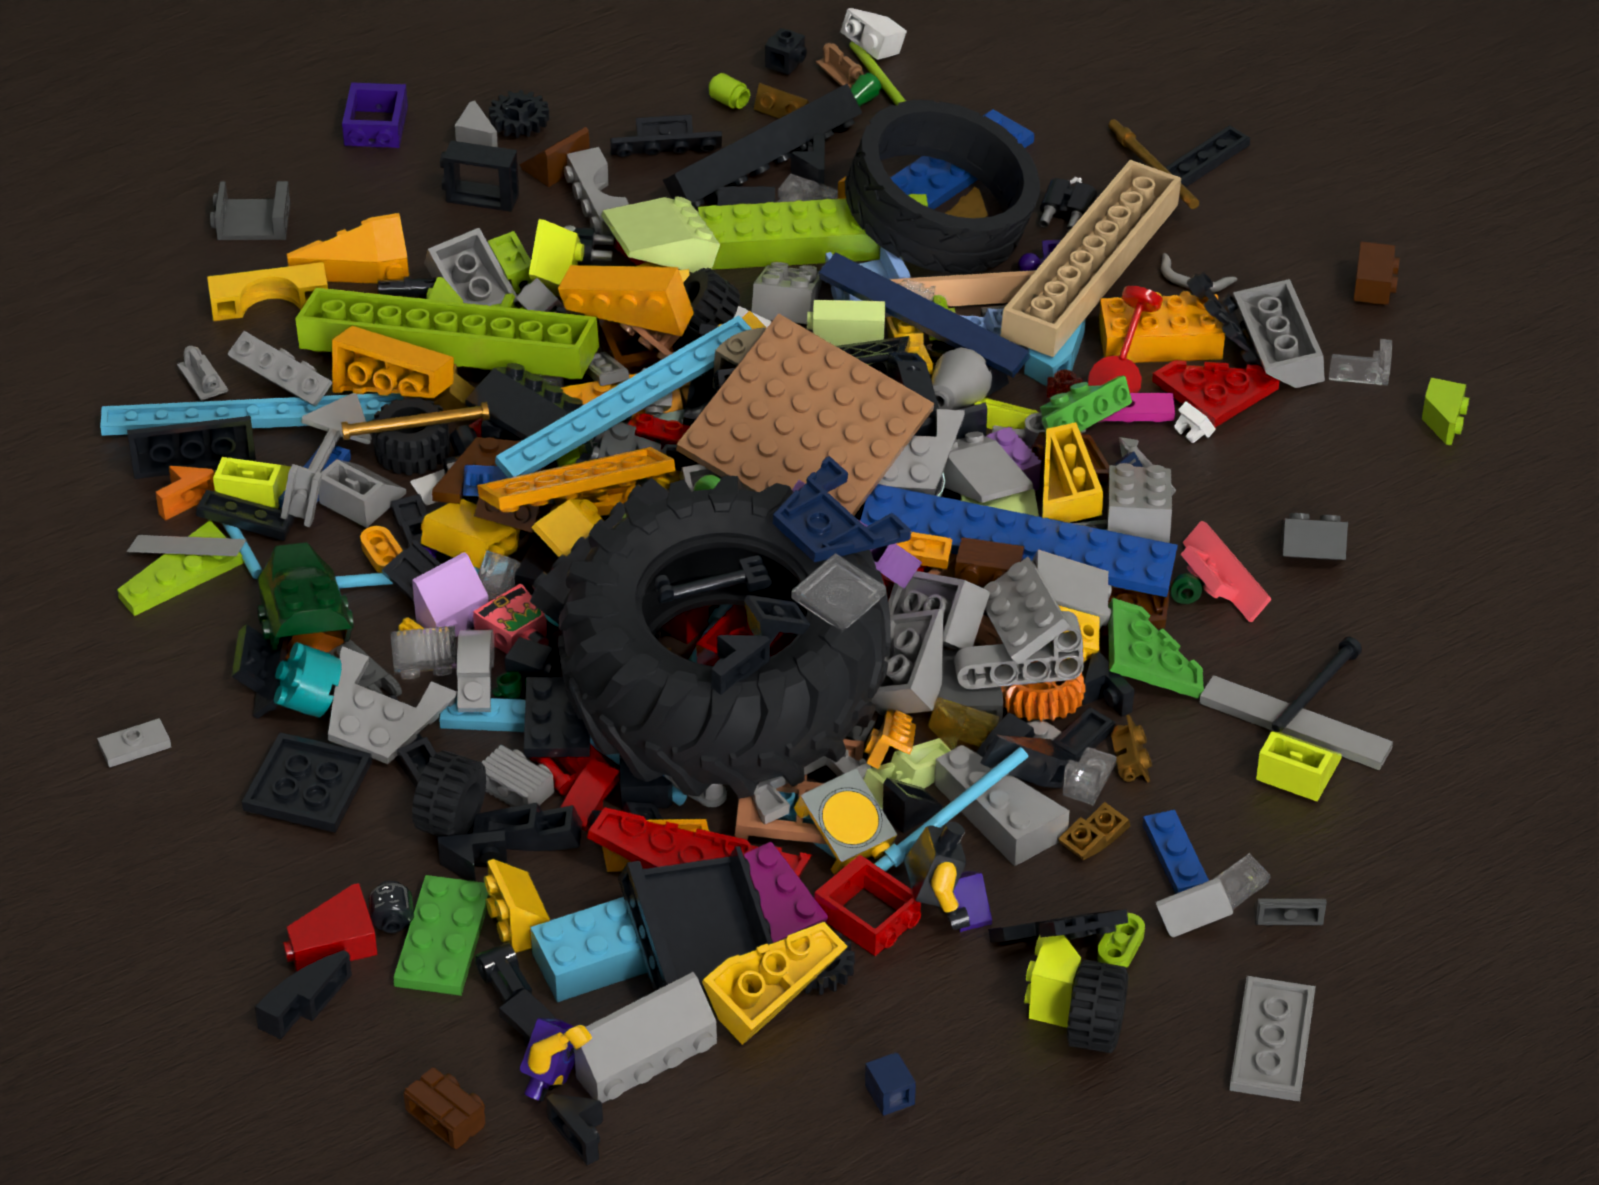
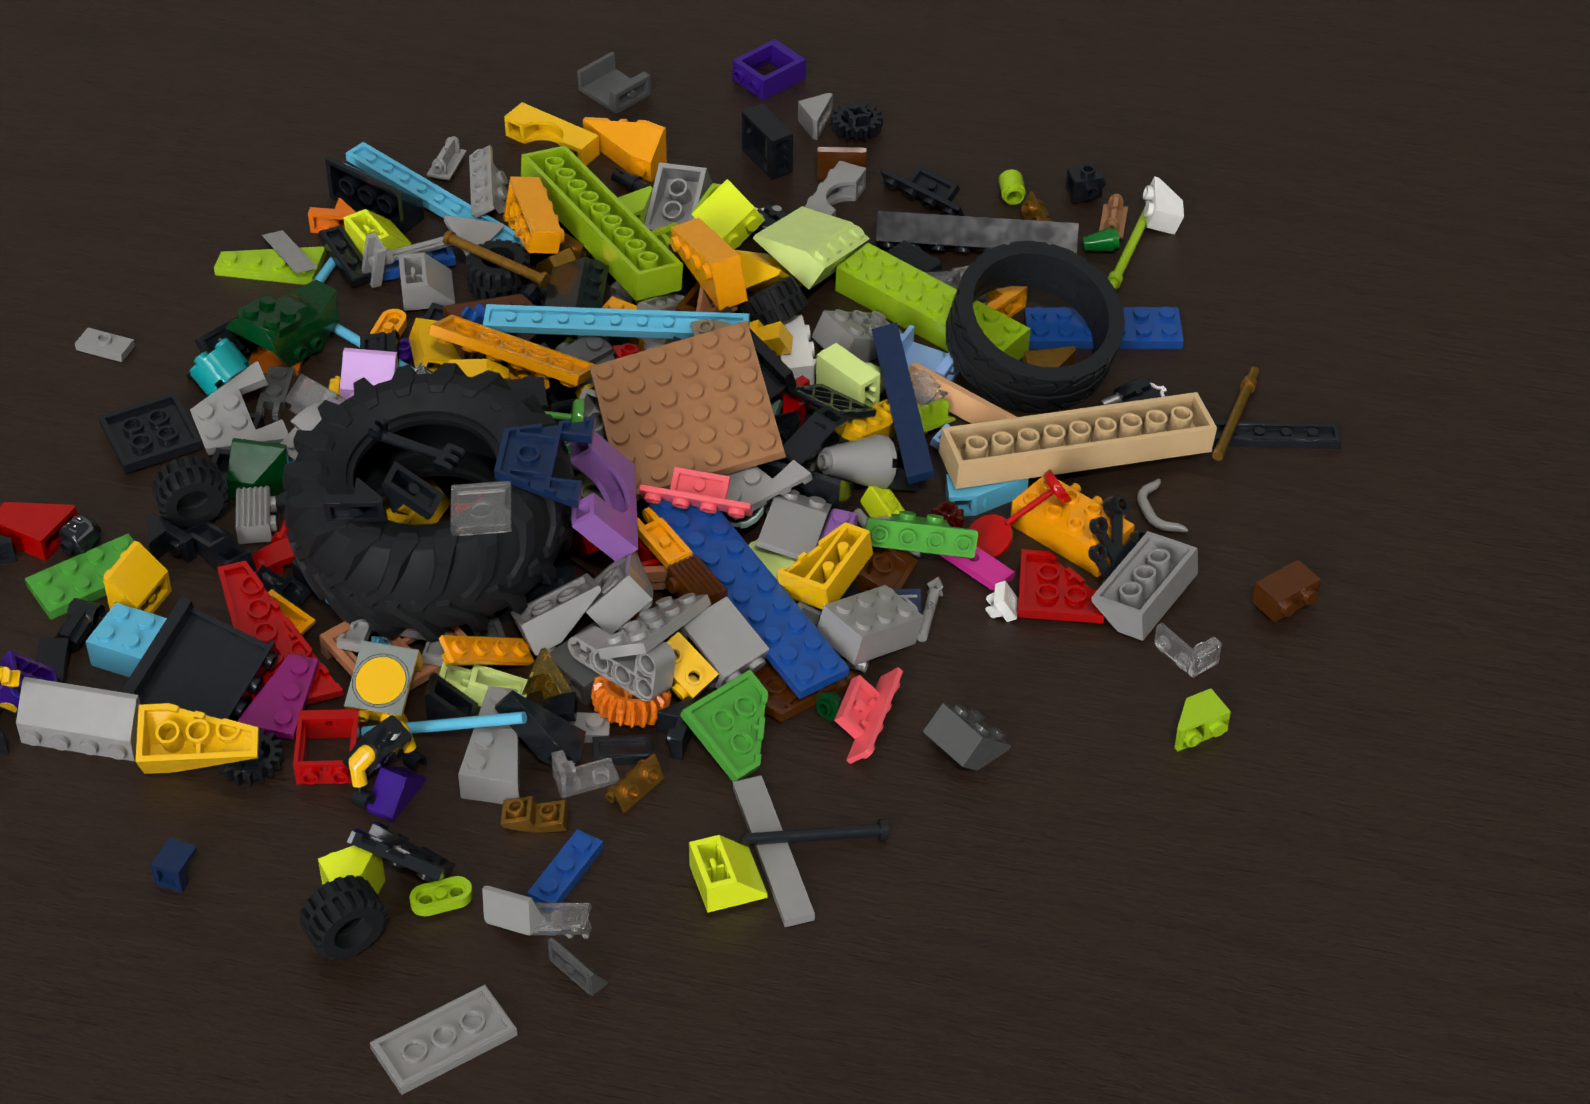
camera: 45 degrees right, 0 degrees up
(470, 729) = (256, 465): none -> dark green slope
(902, 481) = (698, 490): none -> coral bracket

